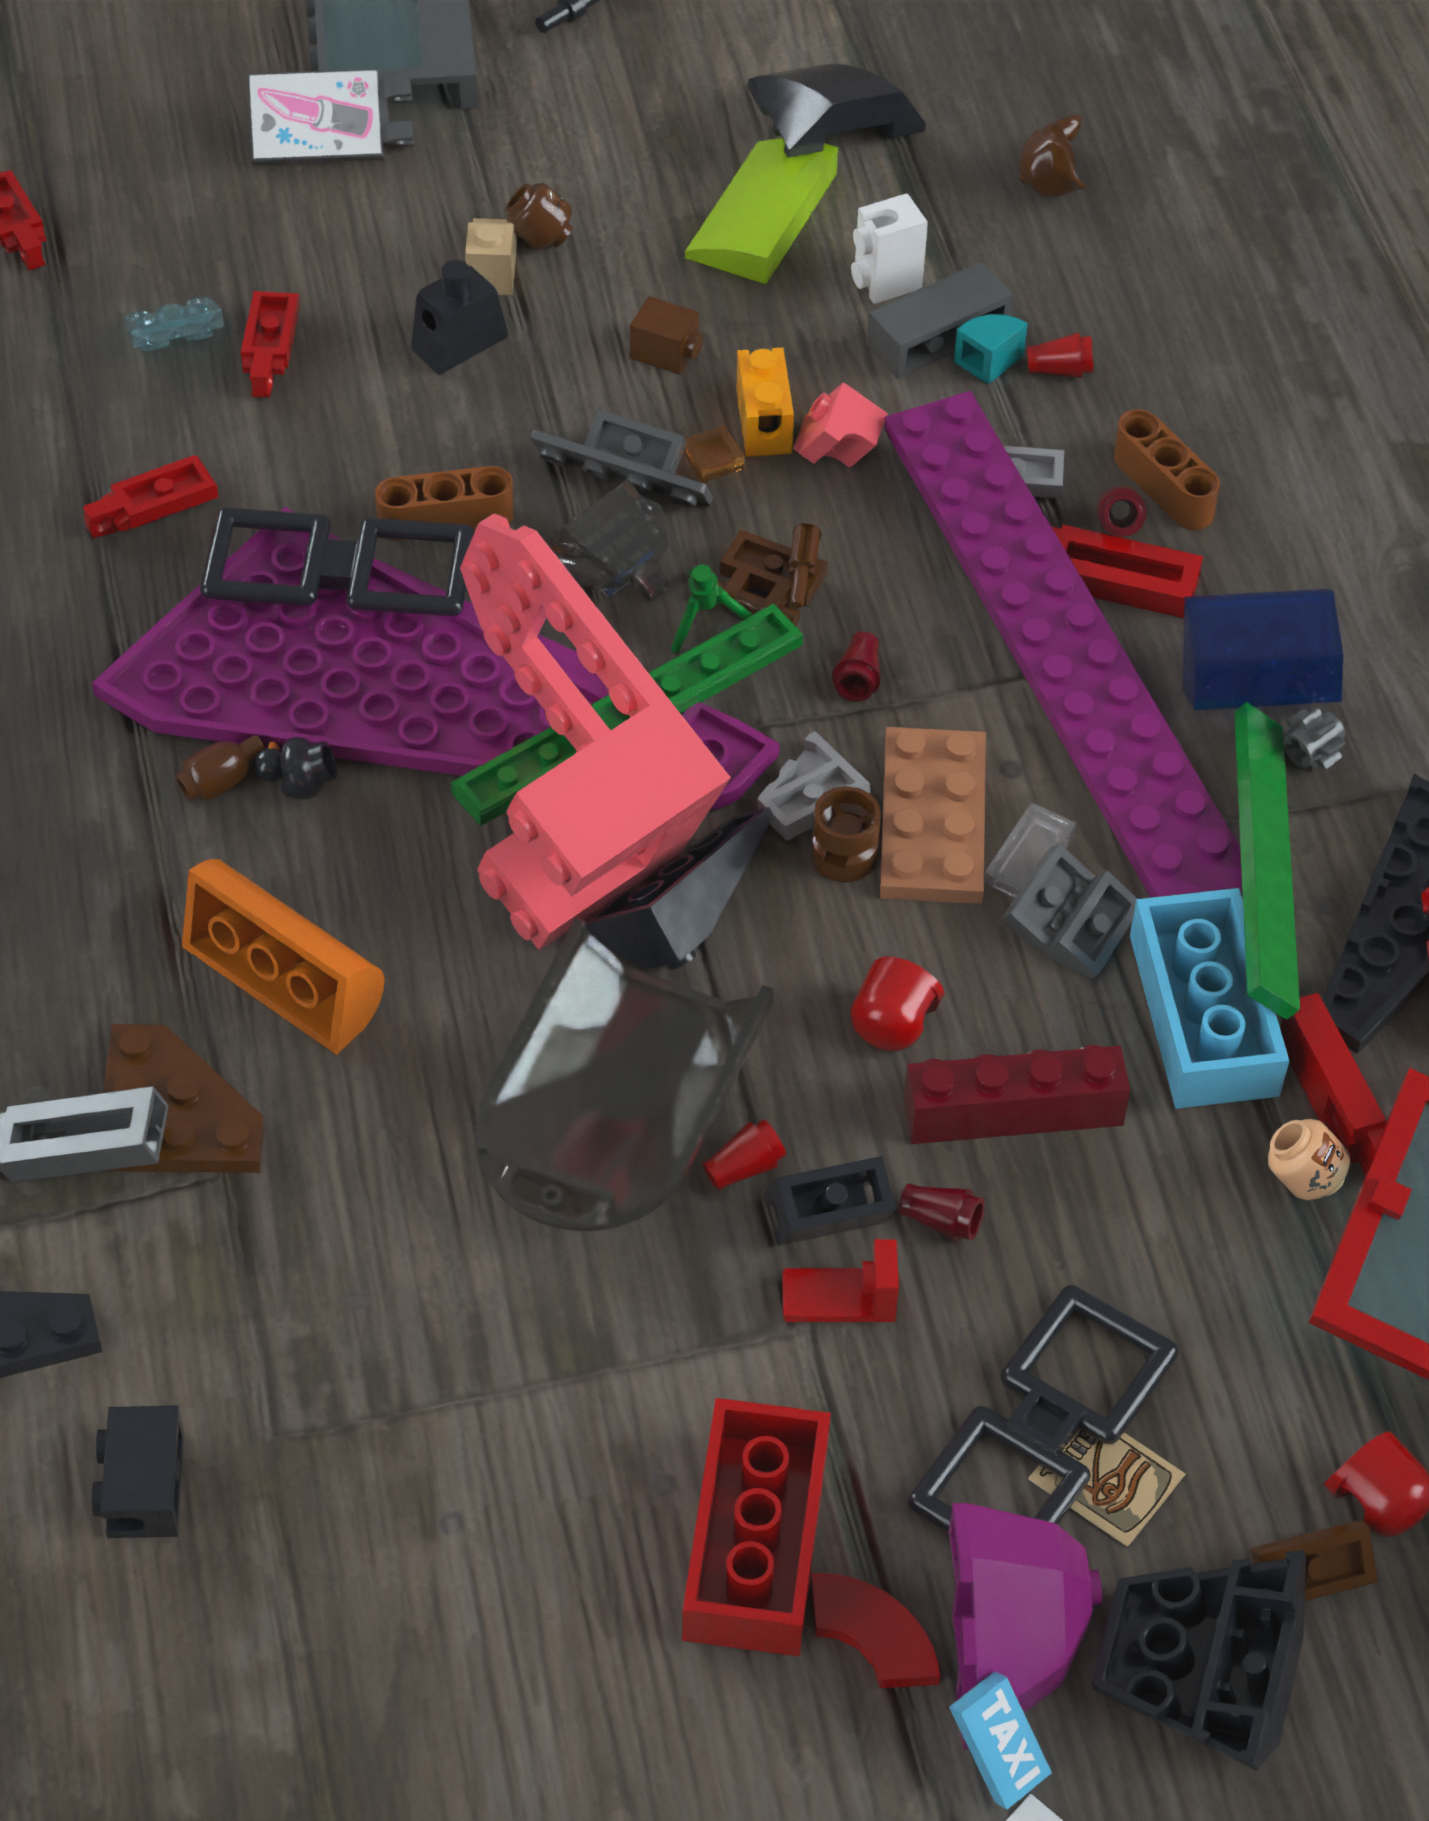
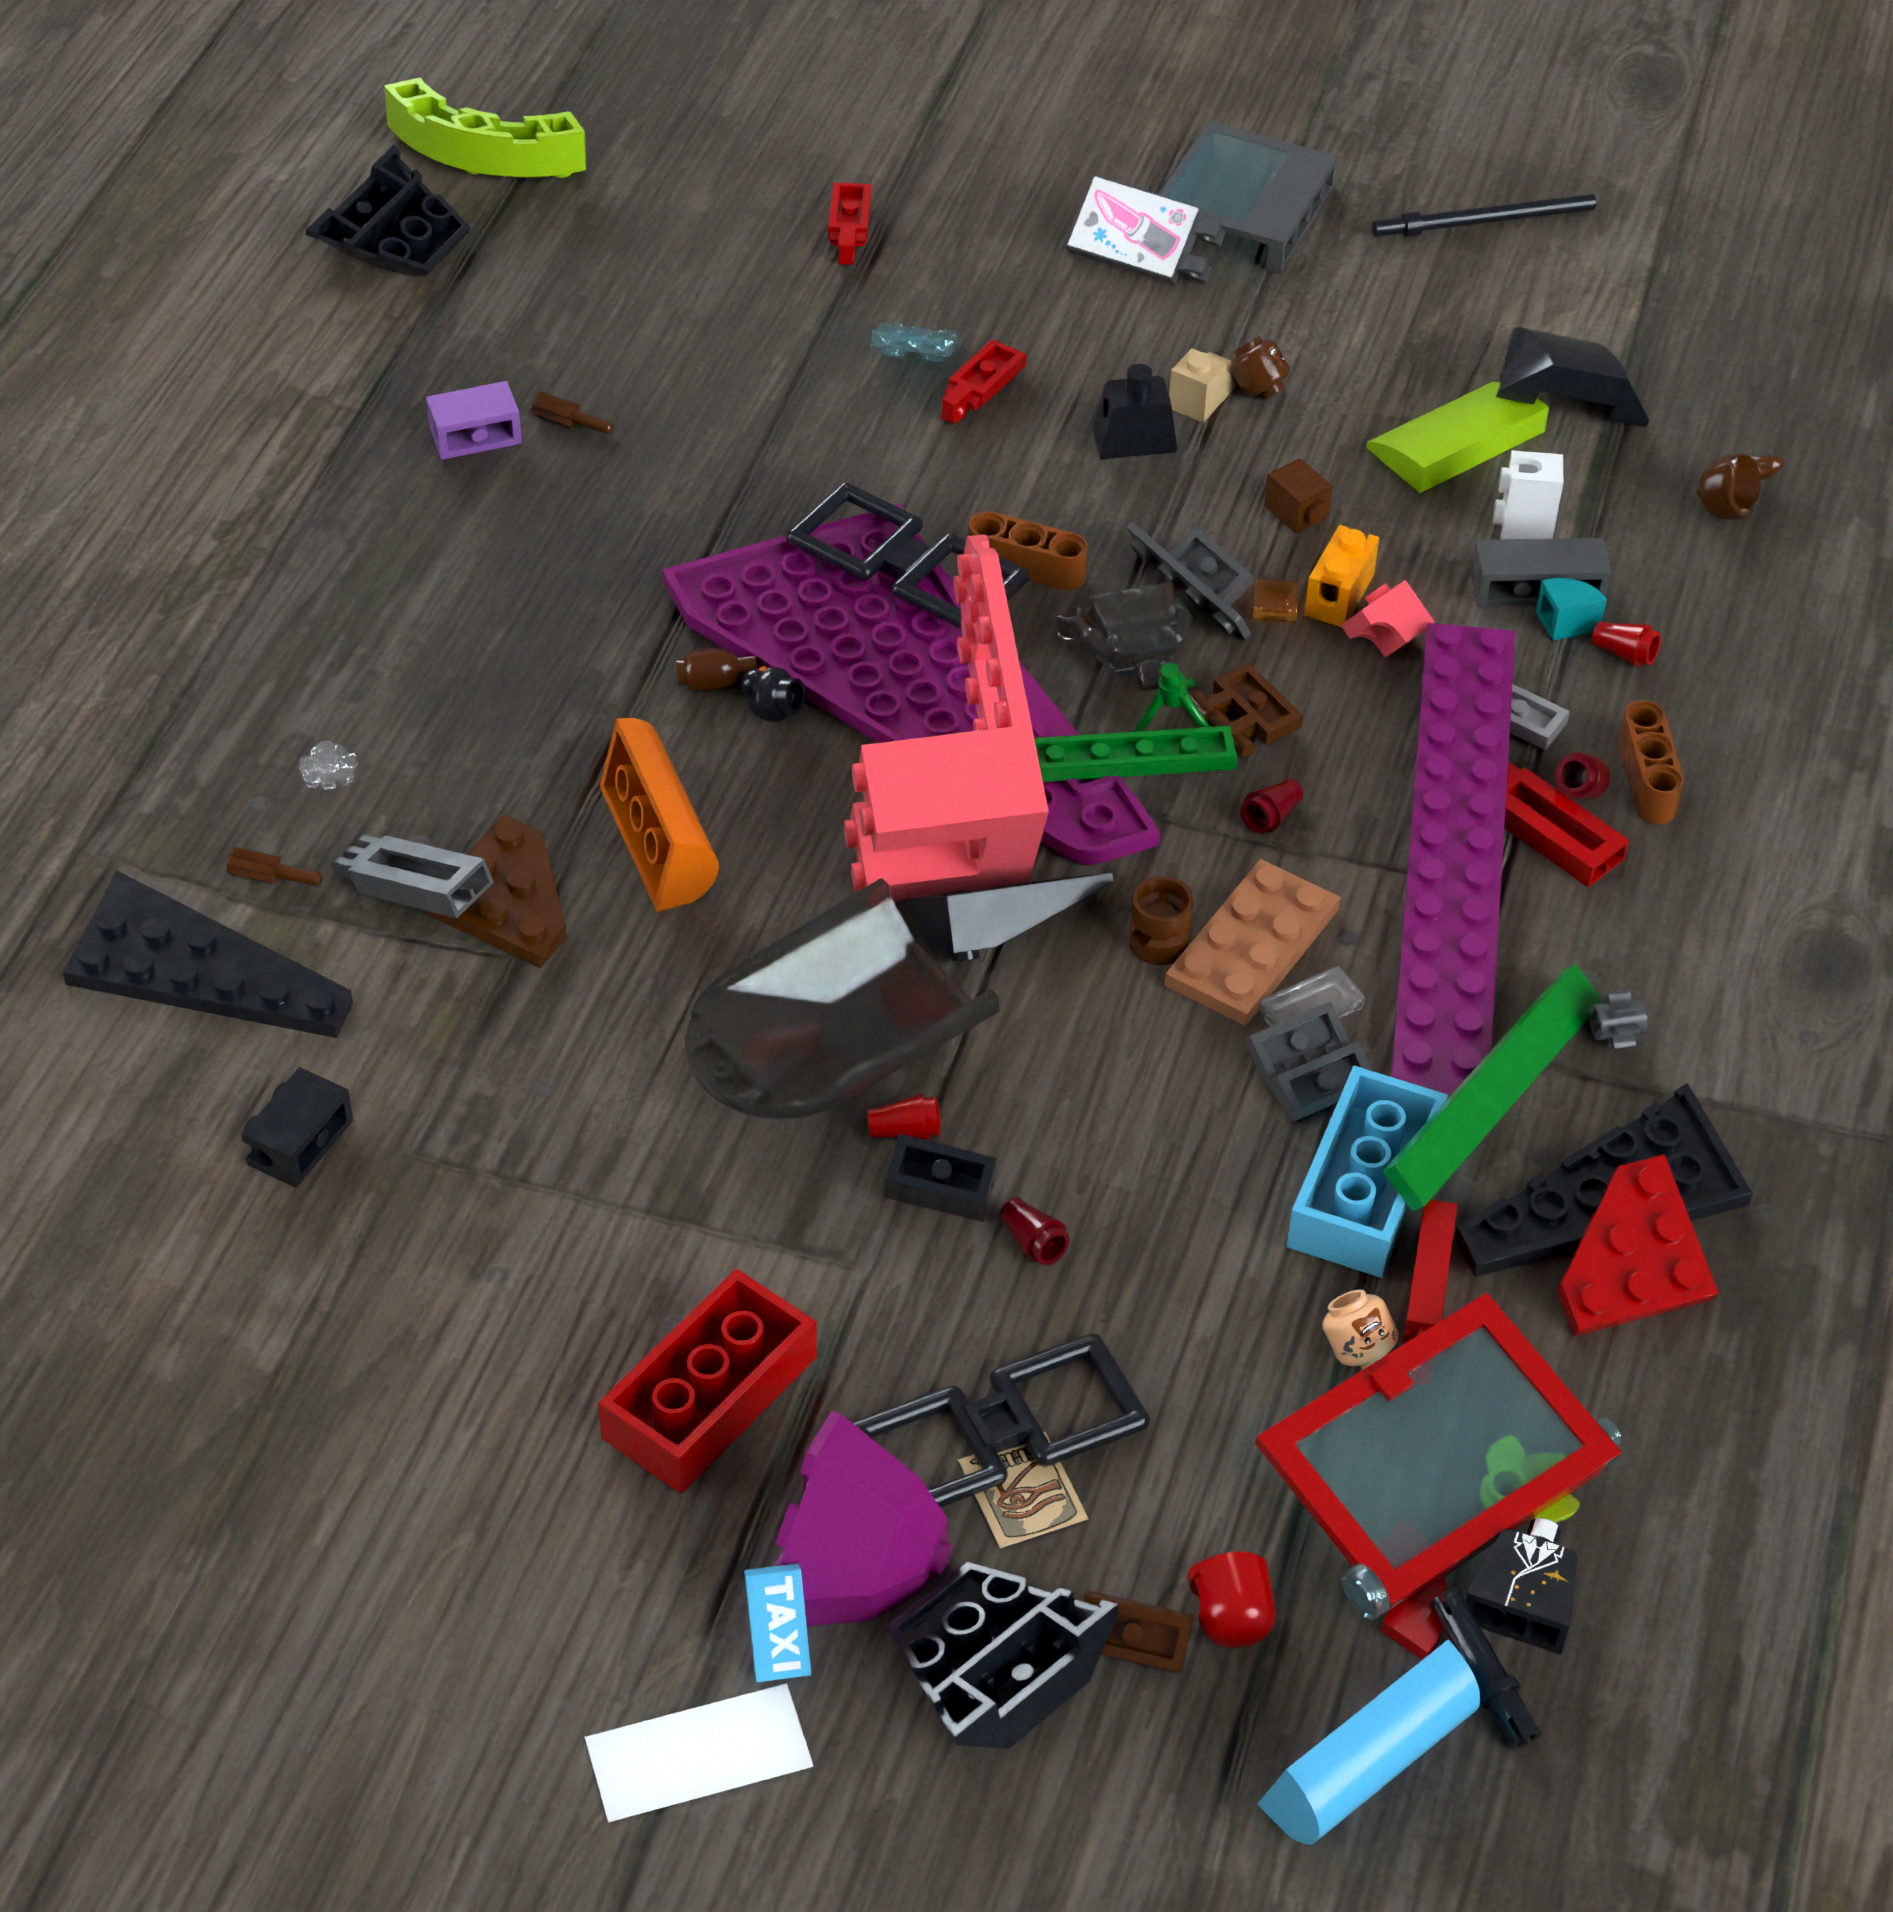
camera: 30 degrees right, 5 degrees down
(151, 497) = (805, 457): red hinge -> none
(802, 784) = (1183, 865): light grey wing -> none
(803, 560) = (1278, 704): reddish brown axle -> none
(845, 1293) = (914, 1257): red bracket -> none
(876, 1627) = (753, 1499): red tile -> none
(894, 1003) = (1101, 1057): red helmet -> none
(1016, 1094) = (1154, 1172): dark red brick -> none
(1262, 649) = (1617, 927): clear blue slope -> none

